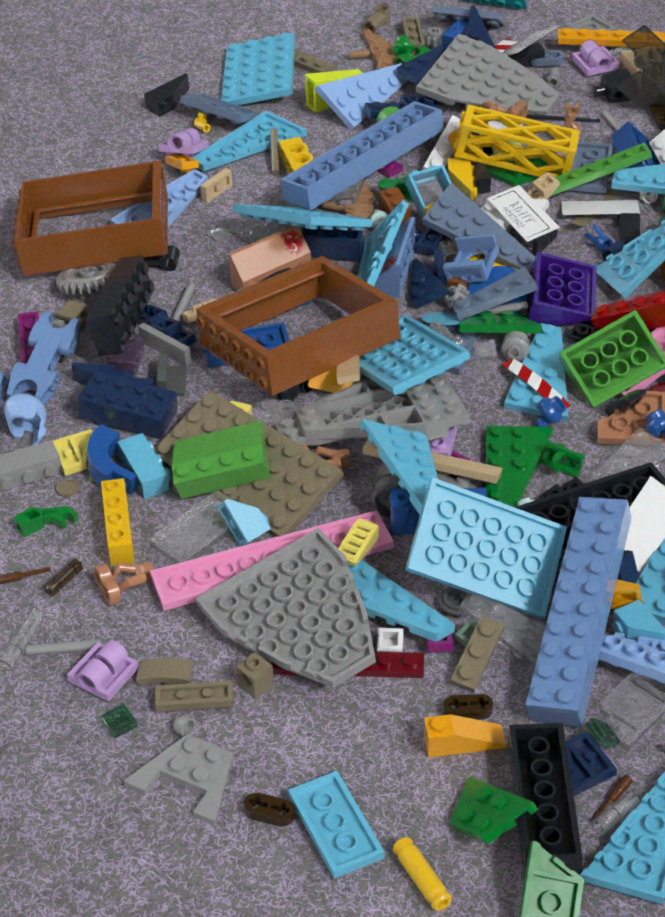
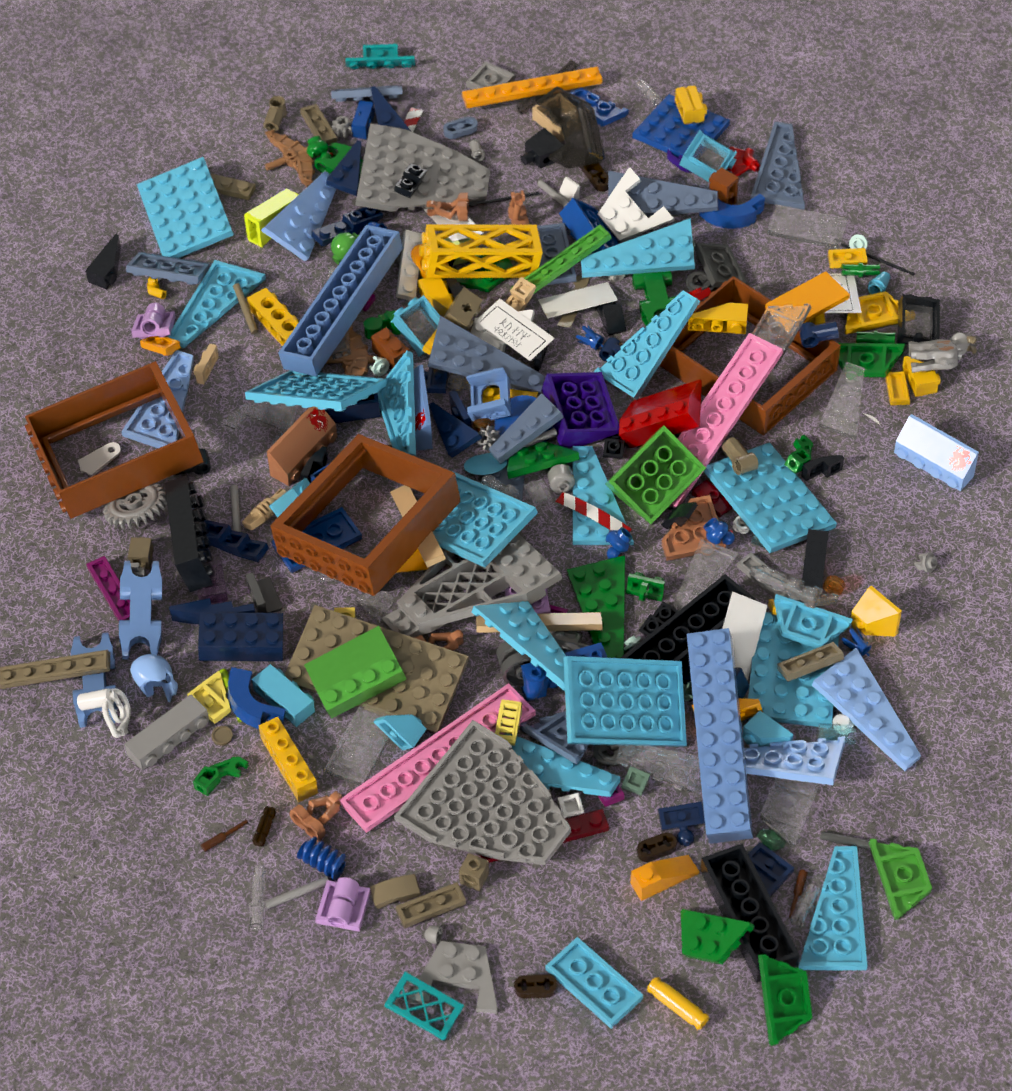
camera: 20 degrees left, 10 degrees up
(104, 618) = (322, 858): none -> blue piece
(119, 721) = (378, 947): clear green plate -> none
(156, 815) = (422, 986): none -> teal window
(165, 344) = (242, 560): light grey tile -> none
(395, 568) = (553, 734): none -> sand blue wing
(476, 80) = (410, 180): none -> black slope
(477, 654) = (647, 797): dark tan plate -> none
(479, 185) = (464, 308): none -> dark tan brick
(508, 684) = (681, 818): none -> dark blue plate
(529, 41) = (436, 111): white sticker -> none
(530, 52) = (442, 129): black slope -> none
(594, 59) = (508, 119): lavender plate -> none
(632, 117) = (569, 189): none -> white slope

